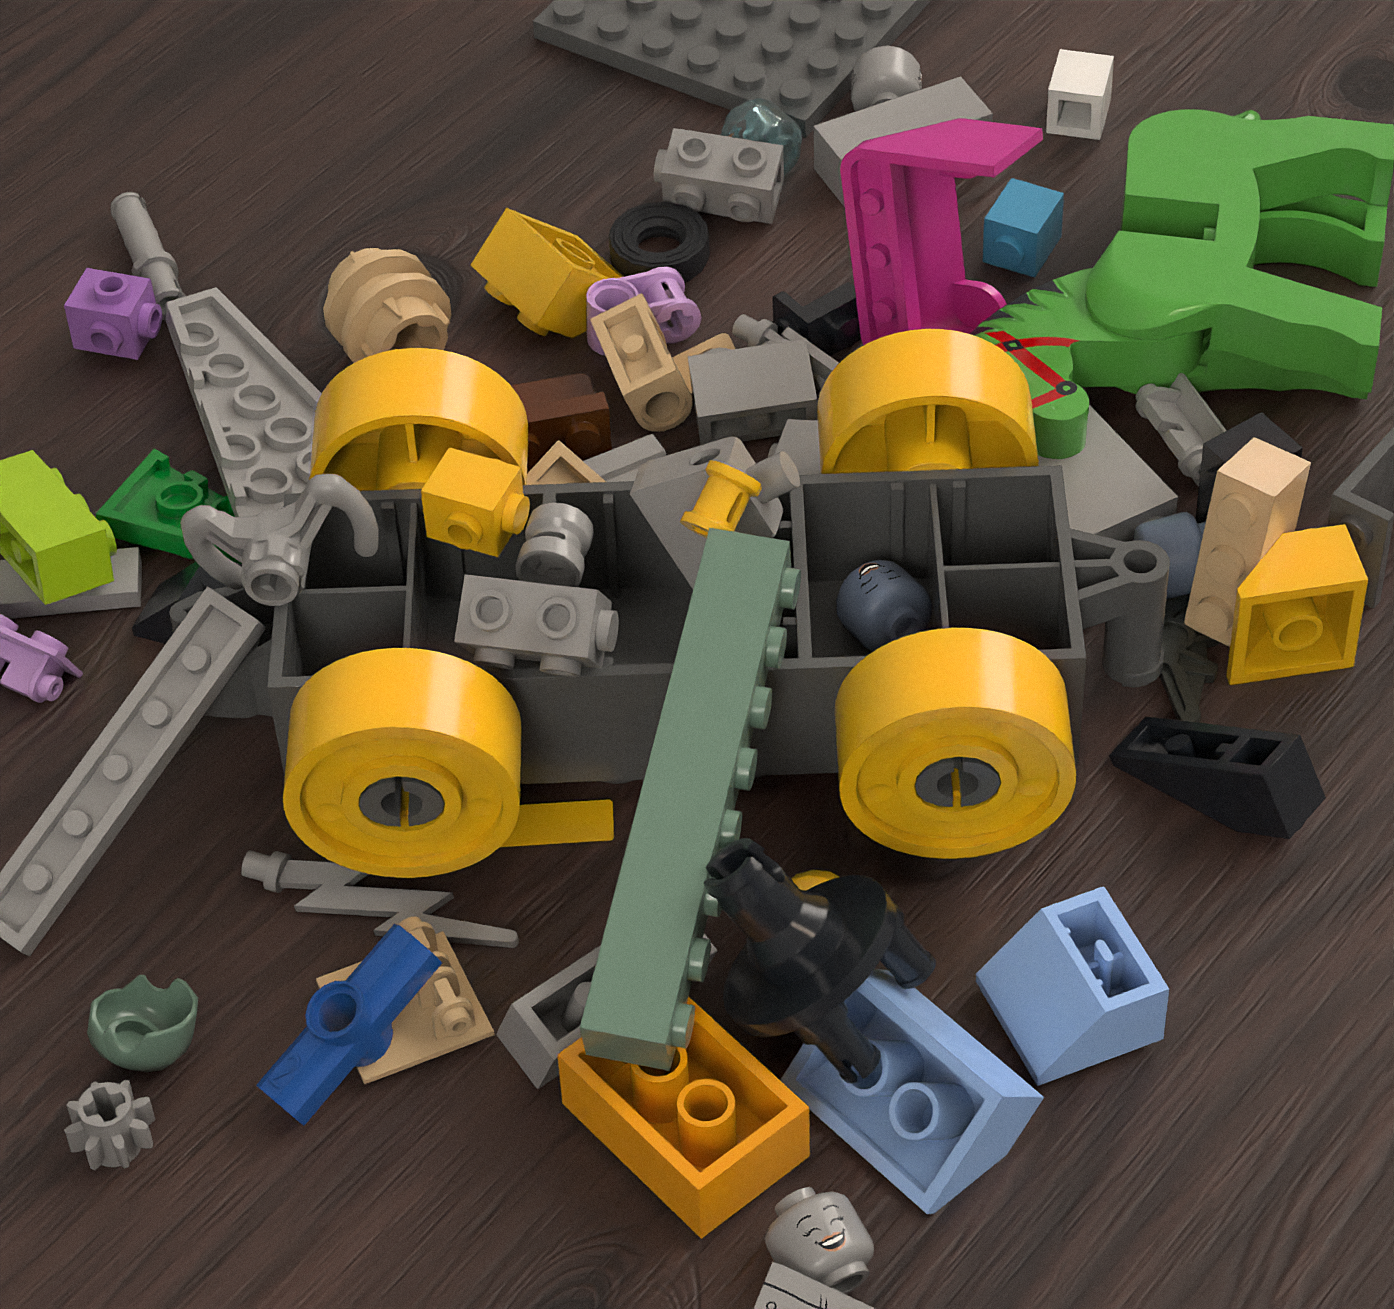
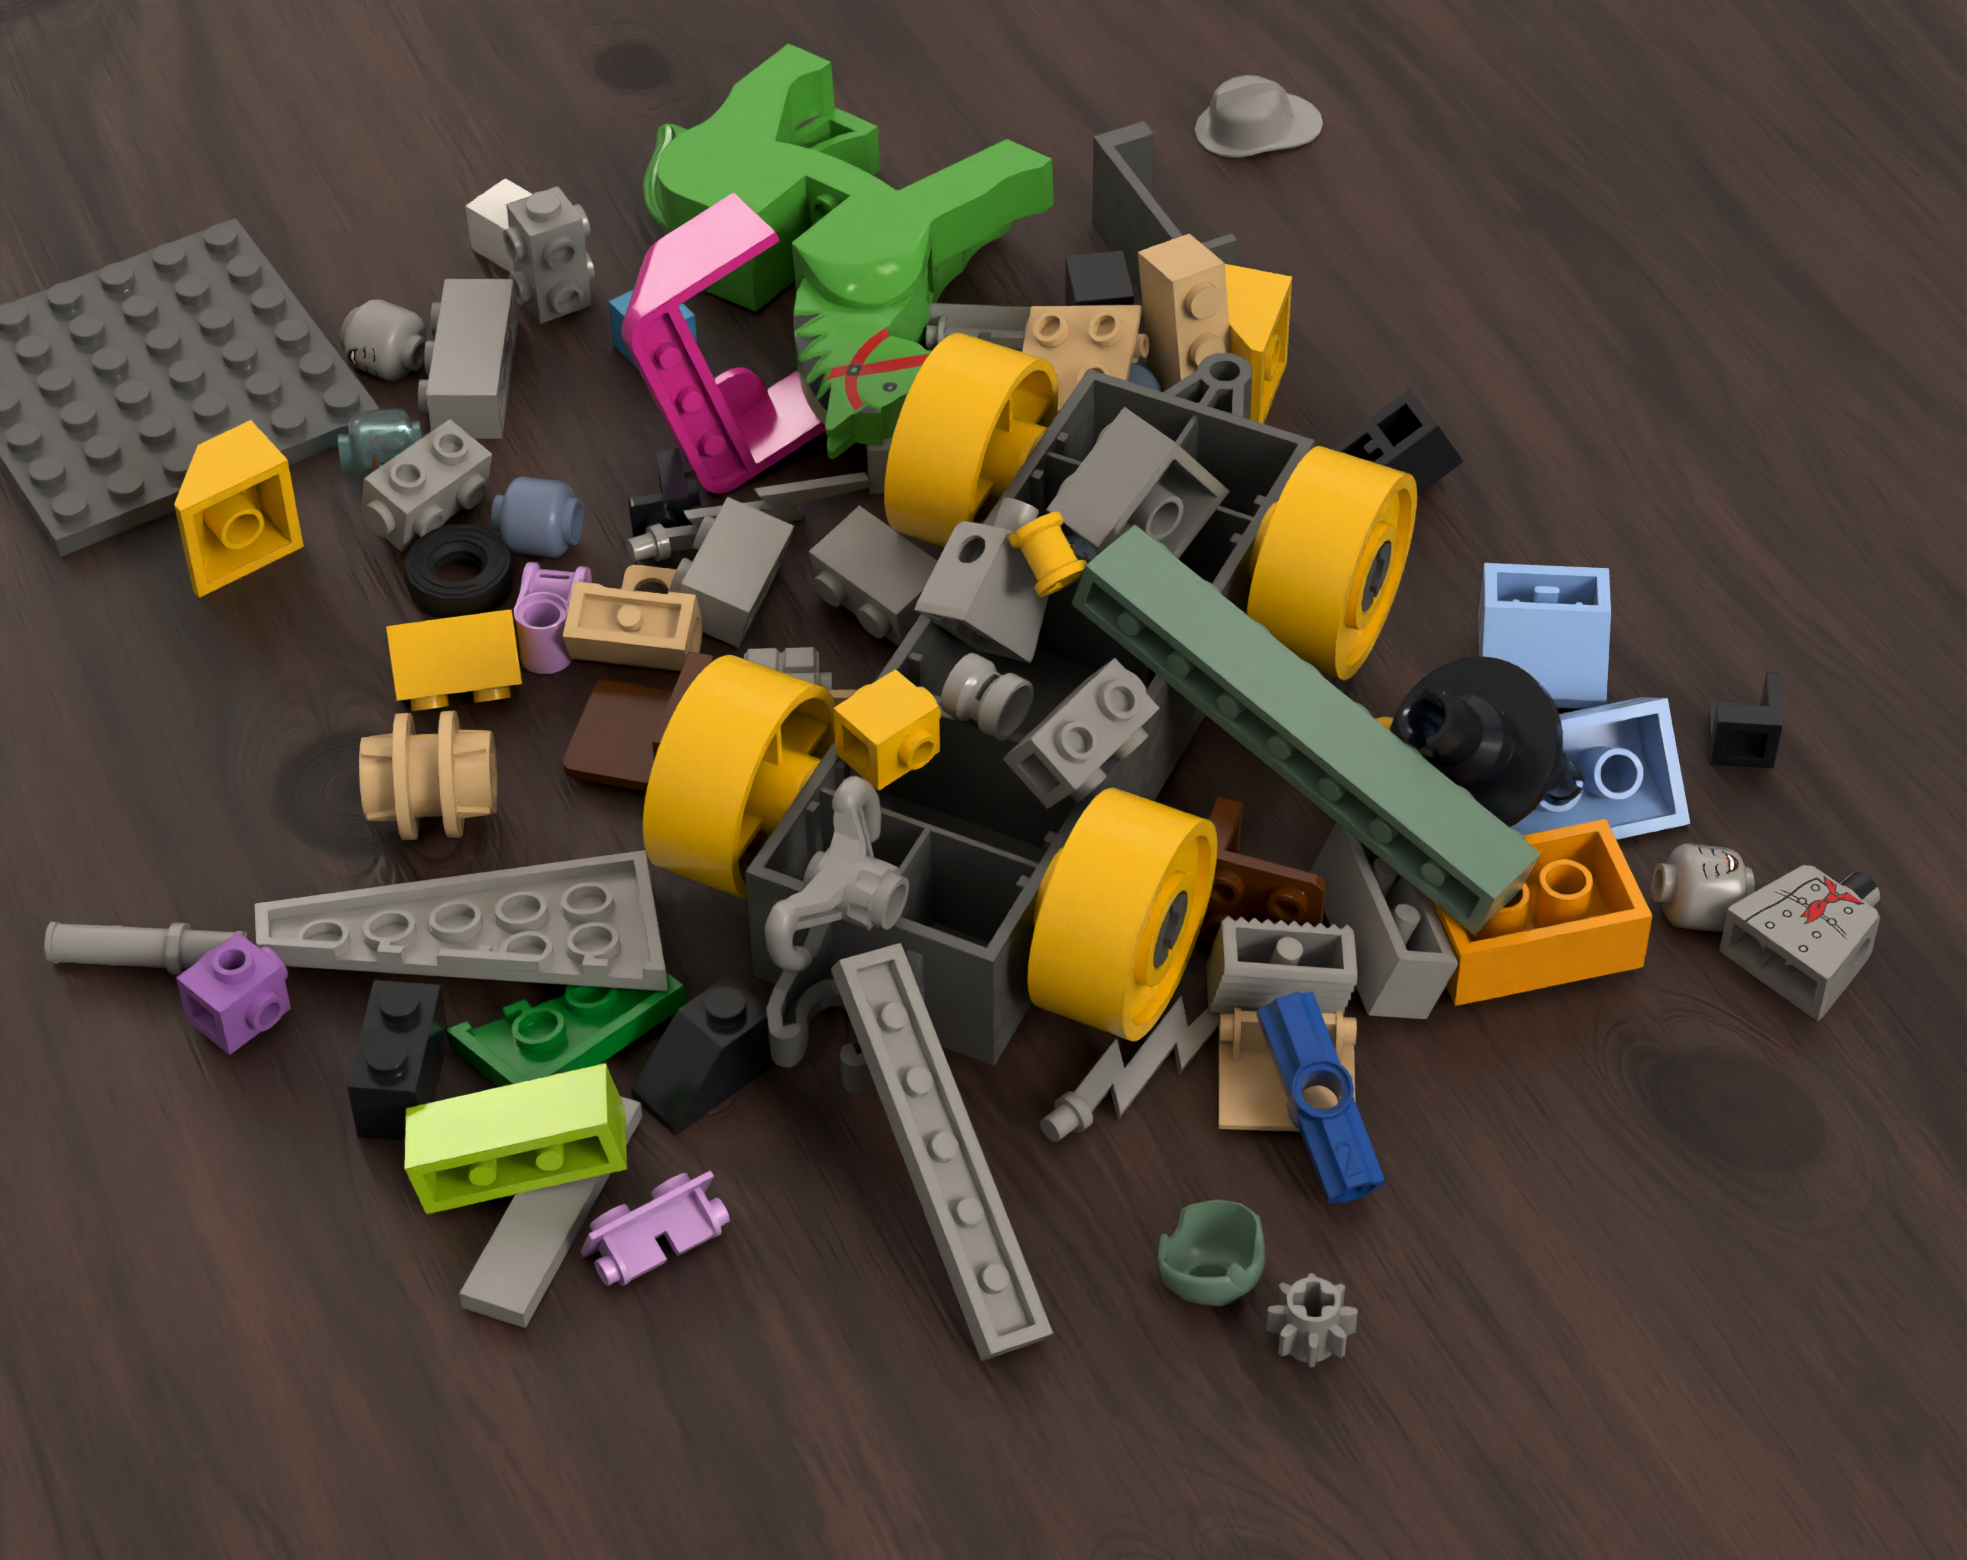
camera: 65 degrees left, 0 degrees up
(97, 429) = (397, 1056): none -> black brick
(487, 934) = (1270, 960): none -> light grey brick
(579, 855) = (1255, 886): none -> reddish brown bracket
(603, 81) = (236, 508): none -> yellow slope
(737, 254) = (538, 517): none -> sand blue head
(874, 551) = (1138, 480): none -> light grey brick
(1049, 98) = (549, 254): none -> light grey brick
(1085, 1214) = (1746, 731): none -> black panel
(1149, 482) = (1085, 339): none -> tan hinge

